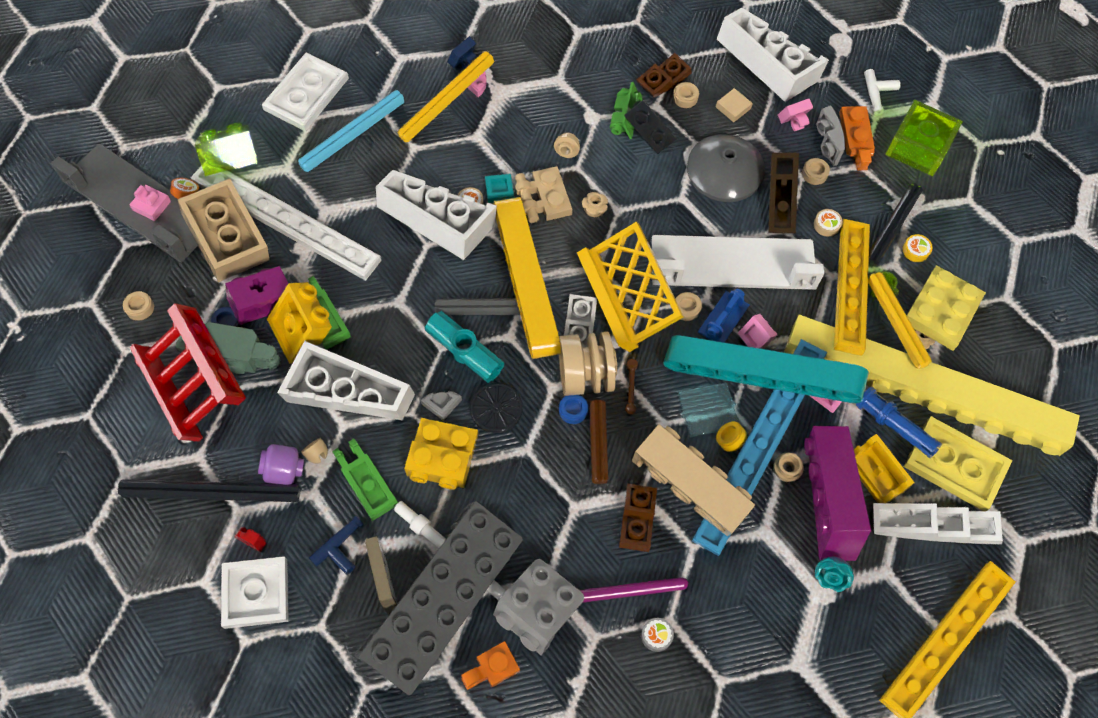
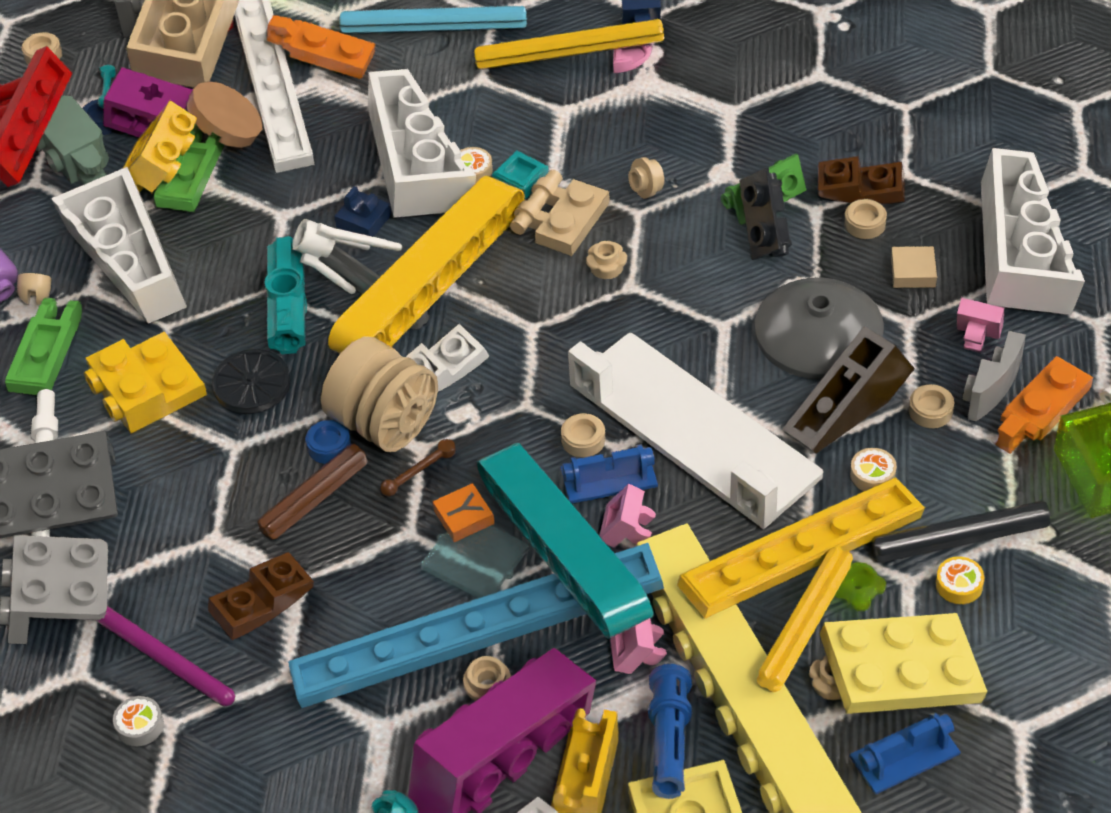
camera: 50 degrees right, 15 degrees down
(196, 290) = (107, 72): none -> teal hinge
(309, 267) = (225, 114): none -> medium nougat tile
(311, 188) = (321, 46): none -> orange hinge
(441, 403) = (204, 337): light grey tile -> none
(445, 270) = (362, 213): none -> dark blue tile
(458, 302) = (319, 239): none -> white plant
(613, 303) = (507, 342): yellow fence -> none
(685, 392) = (463, 512): none -> orange tile
(694, 479) = (342, 584): tan wedge -> none
(731, 436) = (457, 593): yellow tile -> none
(985, 347) = (906, 752): none -> blue hinge

